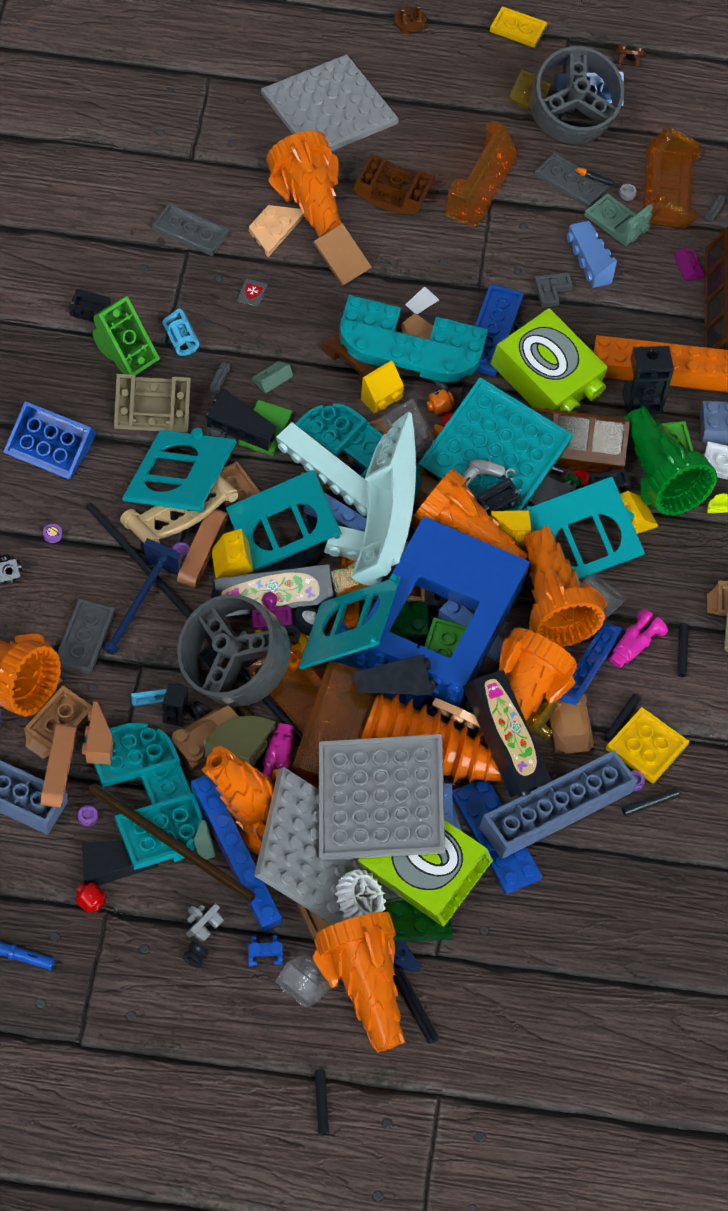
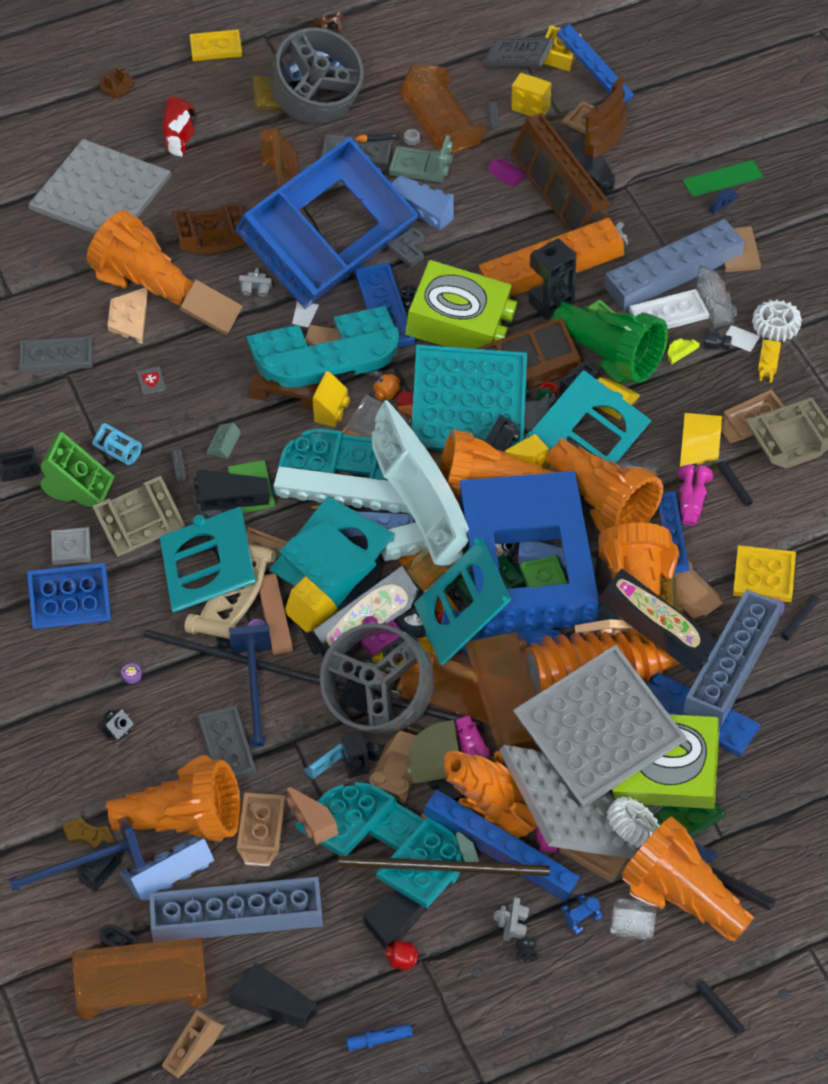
camera: 25 degrees left, 5 degrees down
(58, 765) = (297, 859): nougat beam -> none
(83, 399) = (70, 546): none -> light grey tile
(88, 815) = (345, 891): medium lavender tile -> none
(271, 525) = (327, 560): none -> teal slope
(397, 677) = (539, 621): black slope -> none
(400, 251) = (256, 280): none -> light grey hips
(432, 79) = (177, 125): none -> red animal
(444, 236) = (295, 248): none -> blue panel
(485, 467) = (476, 416): light grey arm -> none
(622, 717) = (727, 564): black piece -> none
(679, 593) = (700, 438): none -> yellow slope

